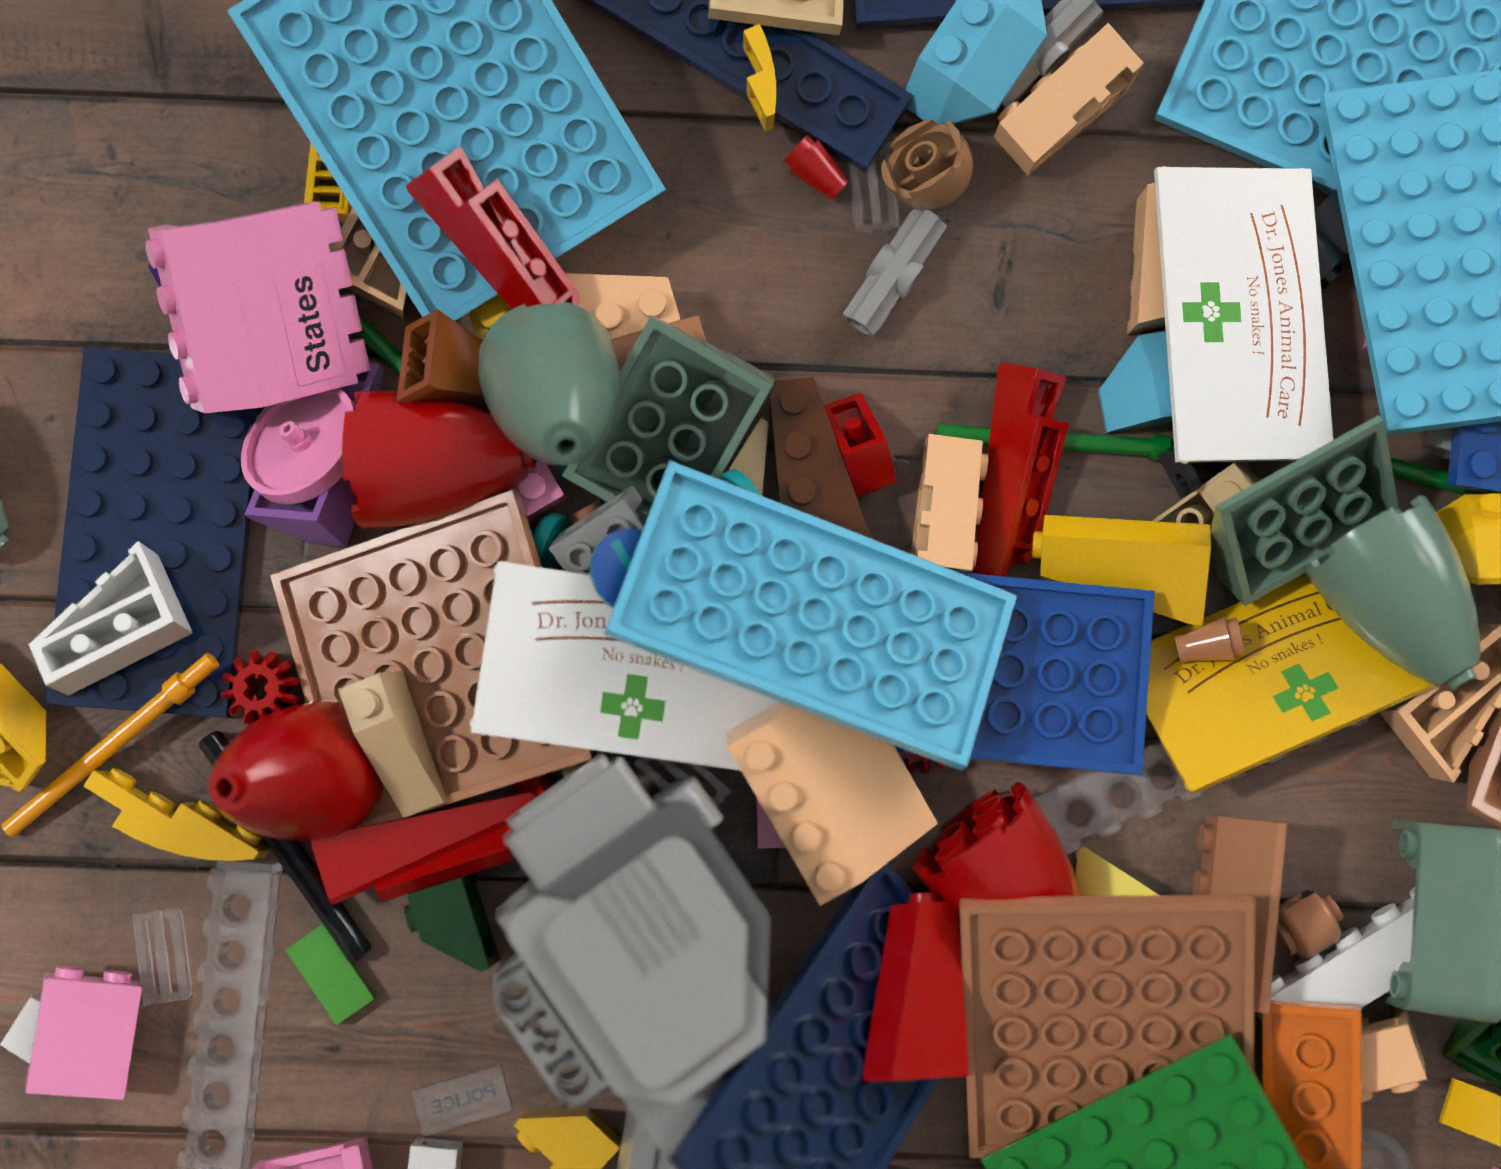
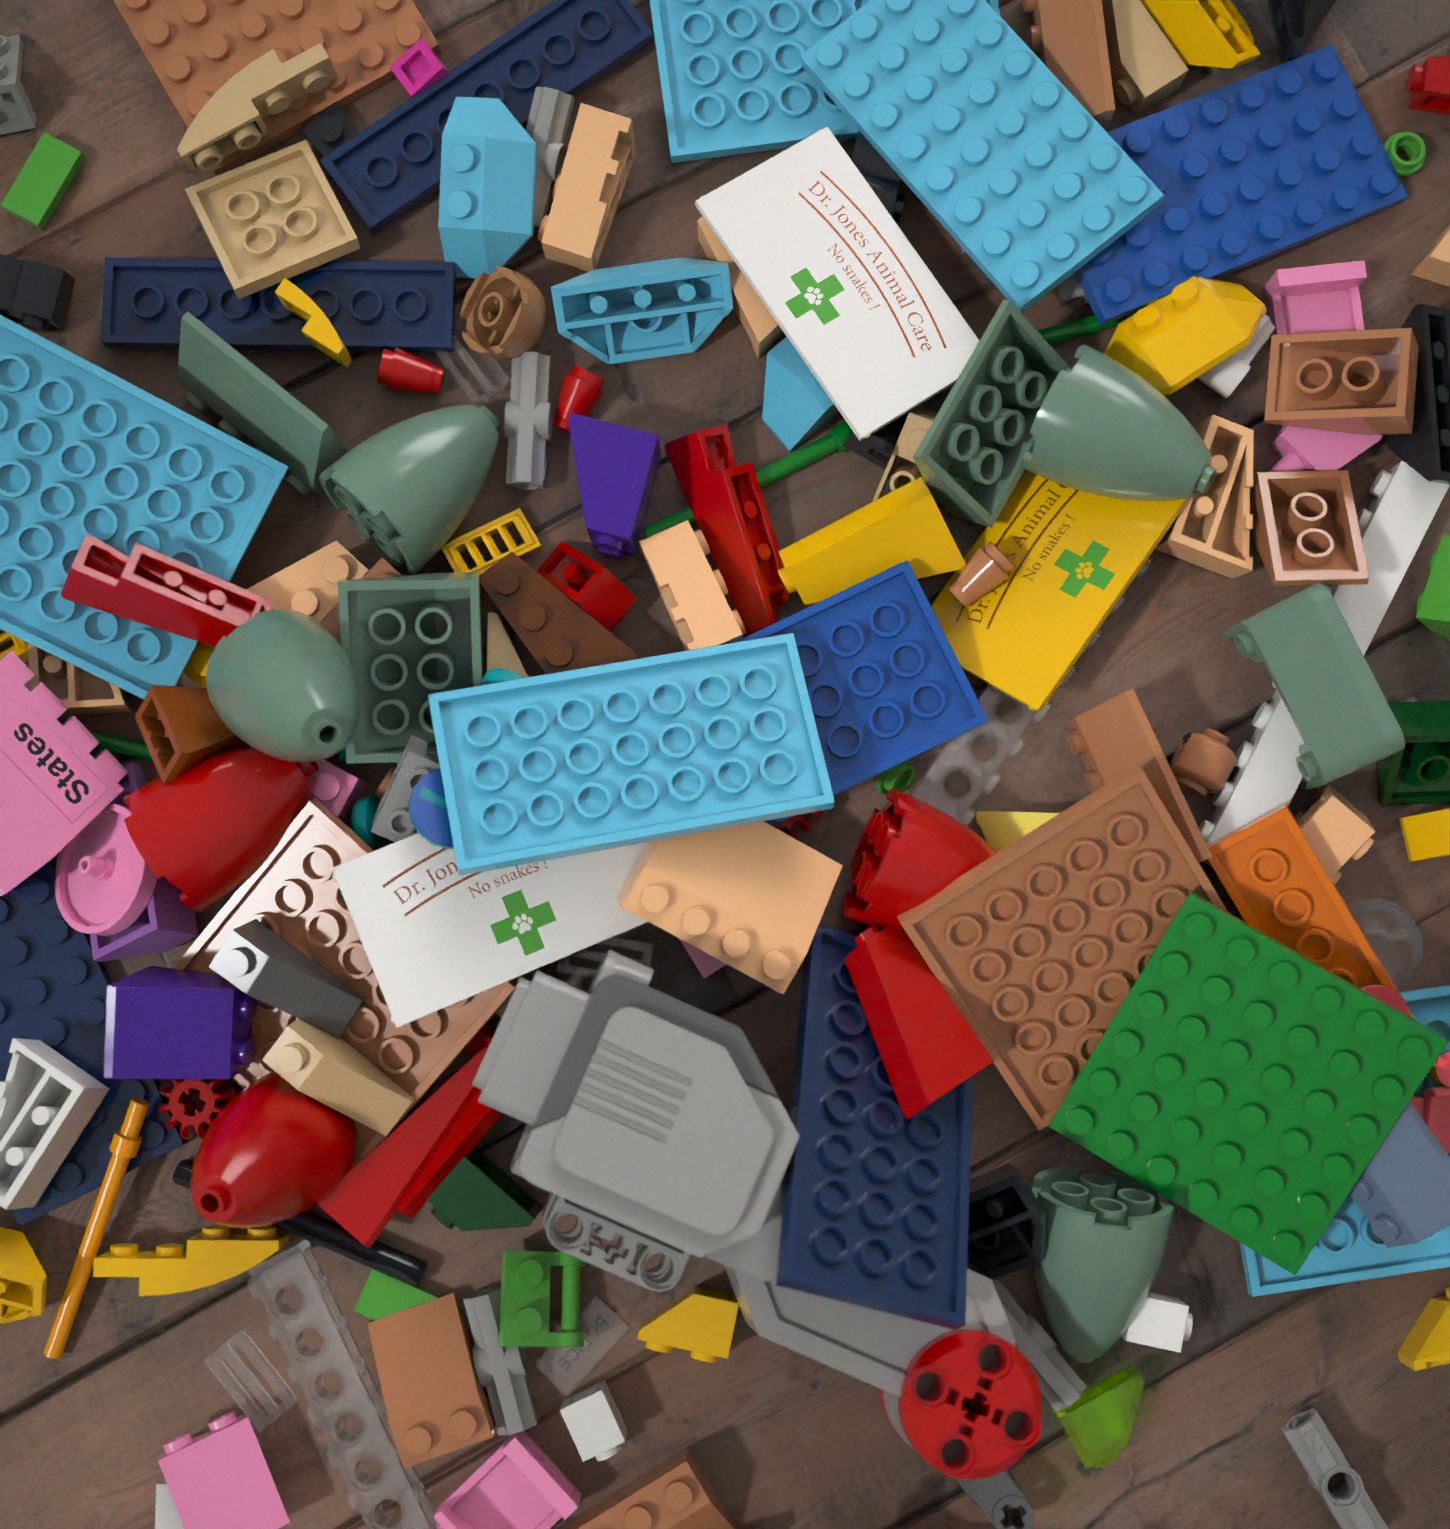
camera: 25 degrees left, 0 degrees up
(285, 615) = (177, 1026): none -> dark purple slope
(315, 1051) = (430, 1380): none -> nougat slope
(384, 1071) = (499, 1368): none -> light grey piece
(400, 630) = (285, 978): none -> dark grey slope
(439, 1033) = (527, 1300): none -> bright green plate
(669, 124) = (255, 407): none -> sand green slope
(762, 344) = (484, 533): none -> yellow slope
(765, 266) = (415, 481): none -> sand green cylinder
(939, 370) = (615, 481): none -> dark purple slope
(948, 277) = (578, 395): none -> red cone
(1029, 775) = (896, 778): none -> bright green plate
(1055, 233) = (644, 308): none -> medium azure wedge

